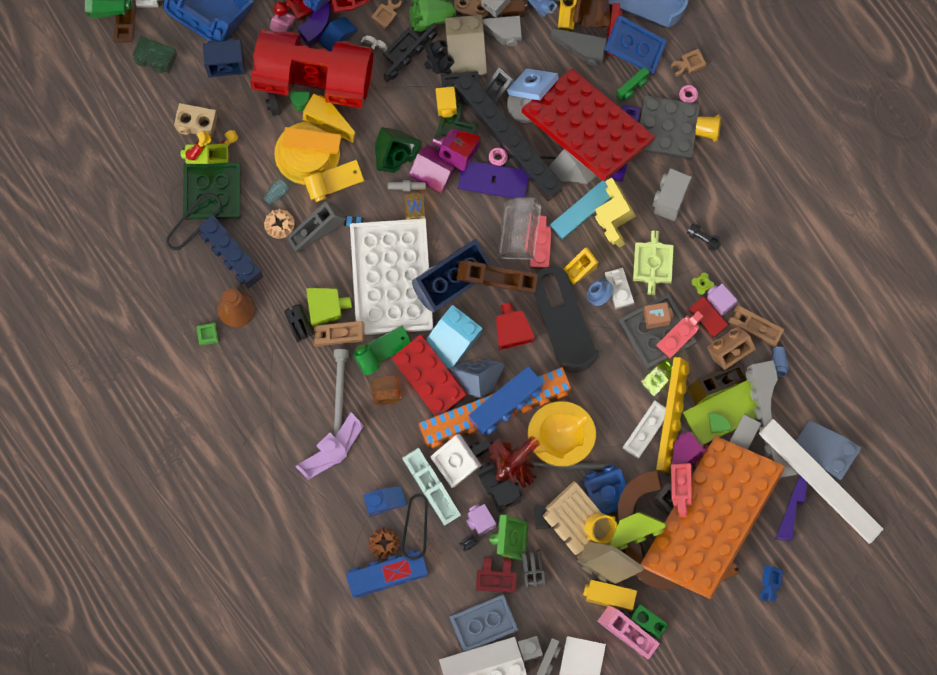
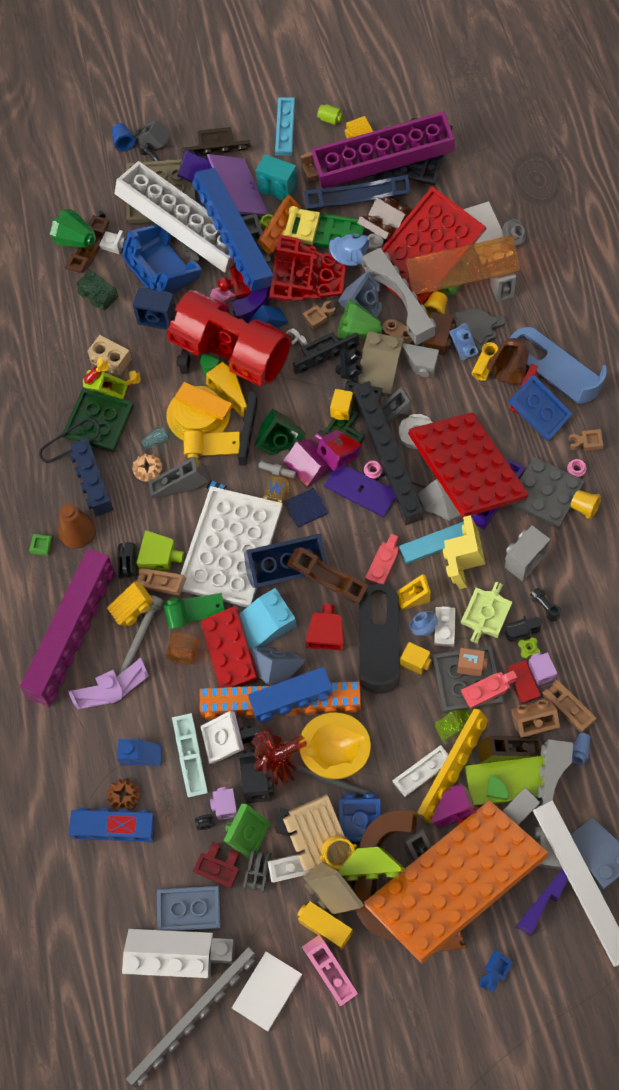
camera: 25 degrees right, 10 degrees down
(271, 406) = (68, 628): none -> magenta brick
(321, 364) = (130, 604): none -> yellow brick
(363, 153) = (247, 428): none -> black tile
(406, 525) = (150, 783): black piece -> none
(447, 214) = (306, 507): none -> clear blue piece
(519, 229) = (368, 540): clear slope -> none
(535, 90) = (429, 413): light blue piece -> none
(558, 558) = (286, 868): none -> white plate
(584, 47) = (489, 395): dark grey slope -> none
(604, 328) = (415, 658): none -> yellow brick
(629, 87) = (520, 445): green plate -> none
(648, 621) = (354, 966): green leg -> none
(681, 487) = (434, 838): coral hinge -> none
(691, 268) = (523, 628): none -> black arm

